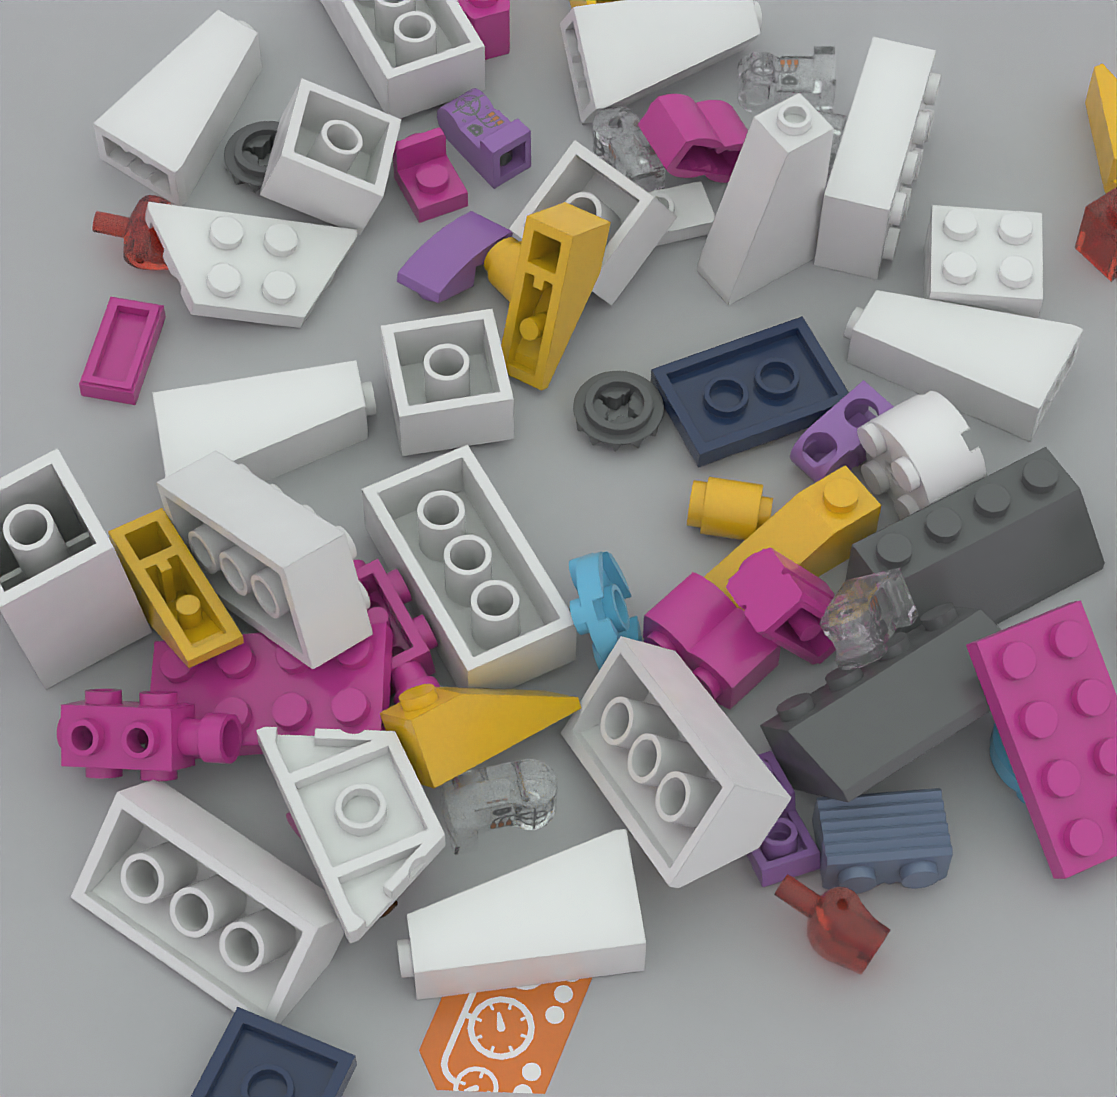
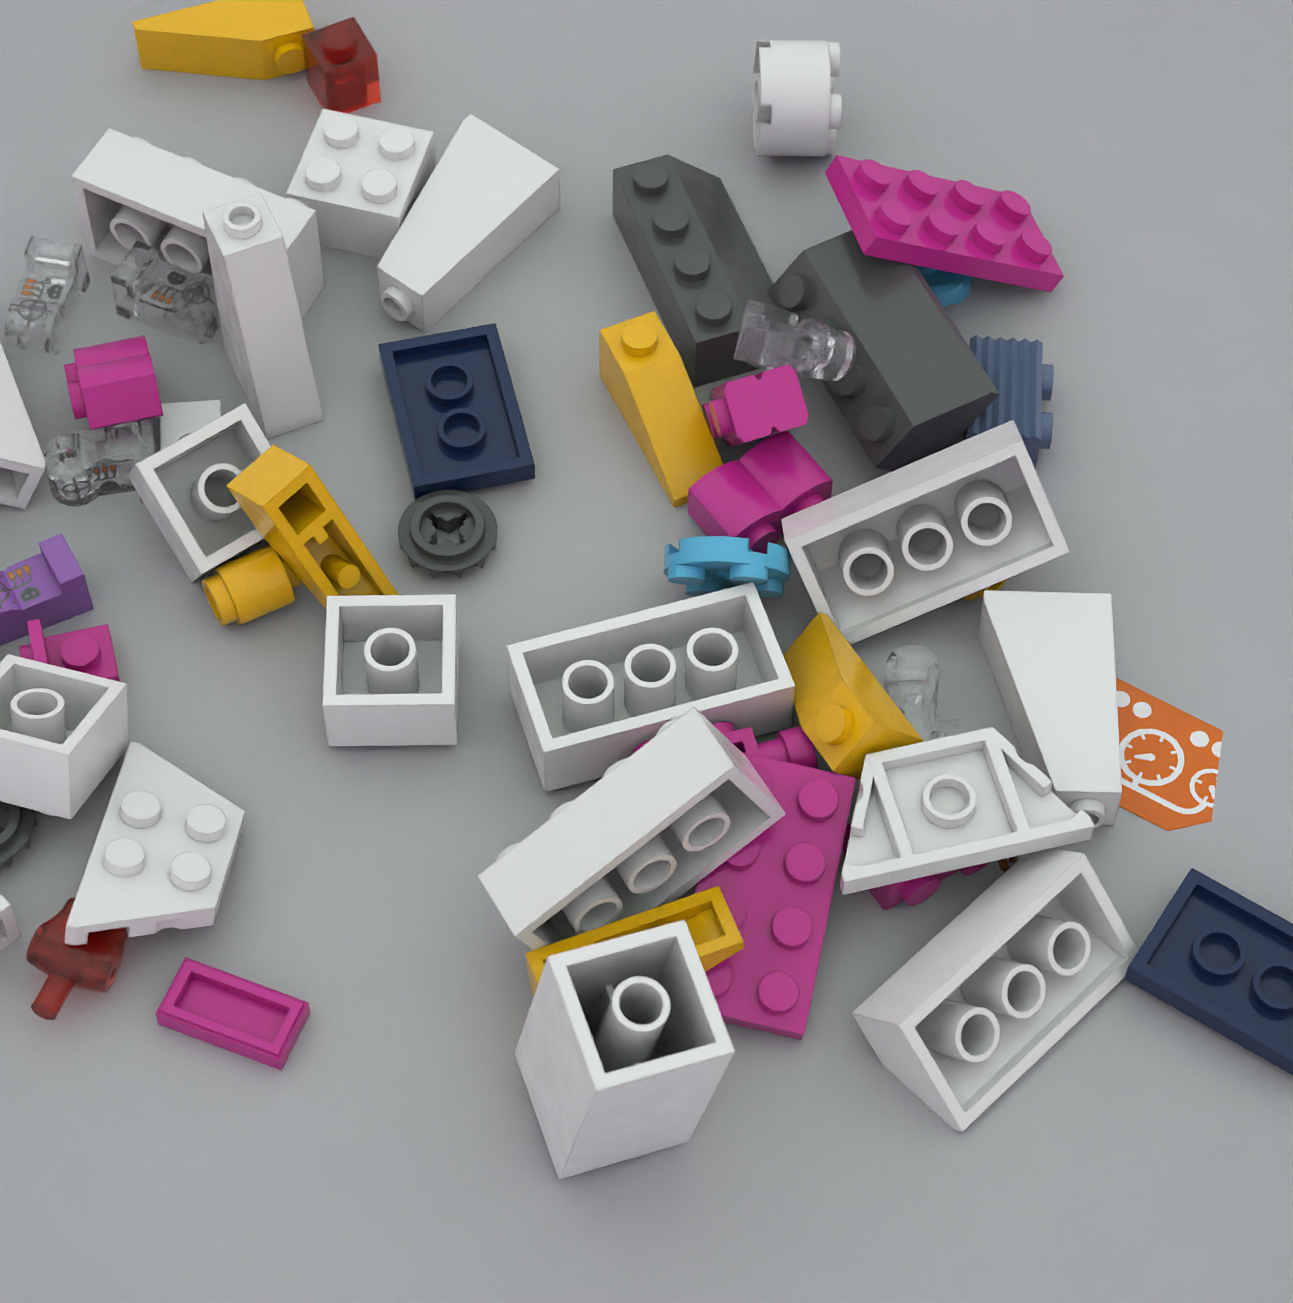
camera: 80 degrees left, 0 degrees up
(109, 734) = (803, 1018): dark pink brick -> none
(267, 419) = (400, 887): white slope -> none
(450, 257) = (202, 648): medium lavender slope -> none
(728, 507) = (603, 454): yellow brick -> none
(834, 436) = (538, 339): medium lavender leg -> none
(836, 924) = (1096, 451): clear red piece -> none
(919, 453) = (593, 273): white brick -> none

